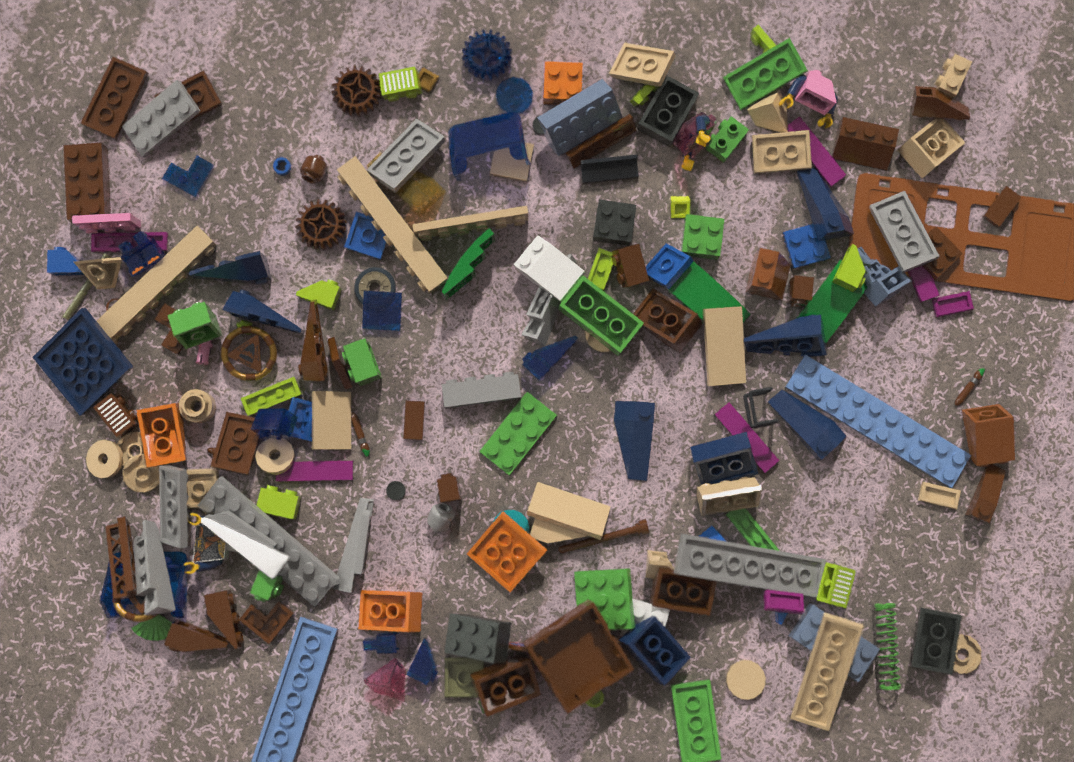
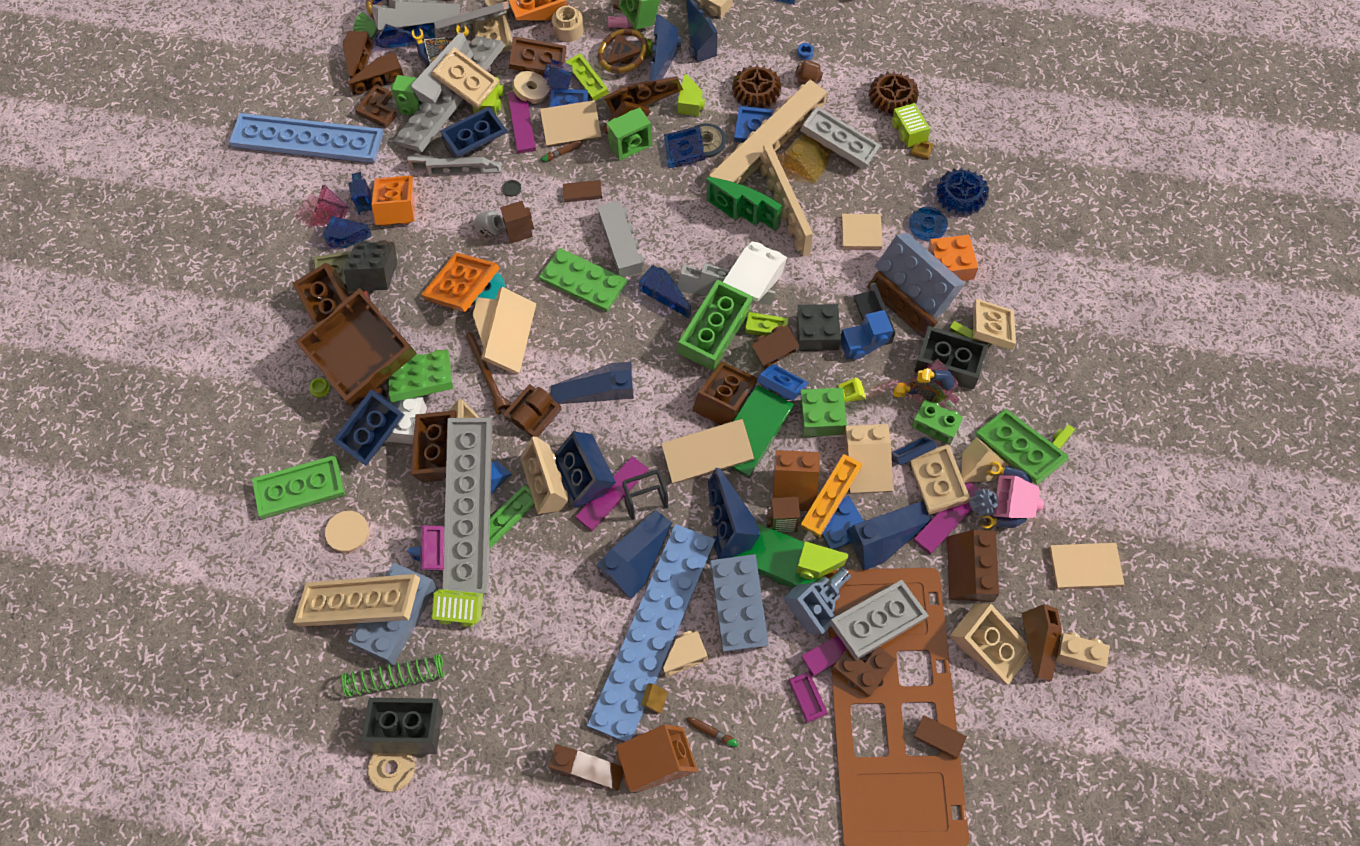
camera: 80 degrees right, 20 degrees down
(264, 521) = (465, 77): none -> tan tile
(332, 520) = (472, 132): none -> dark blue slope
(486, 136) = (883, 213): clear blue windscreen -> none
(633, 180) = (867, 337): none -> blue brick
(655, 499) = (532, 410): none -> reddish brown plate
(751, 167) = (912, 450): none -> dark blue tile
(752, 207) = (873, 449): none -> tan slope
(787, 246) = (831, 495): none -> light orange plate
(815, 119) = (984, 502): none -> sand blue gear
(872, 344) = (739, 603): none -> sand blue brick
(875, 51) = (1086, 566): none -> tan tile
(905, 397) = (685, 653): none -> tan slope
(938, 429) = (654, 698): none -> pearl gold tile
(939, 495) = (576, 714): tan tile -> none

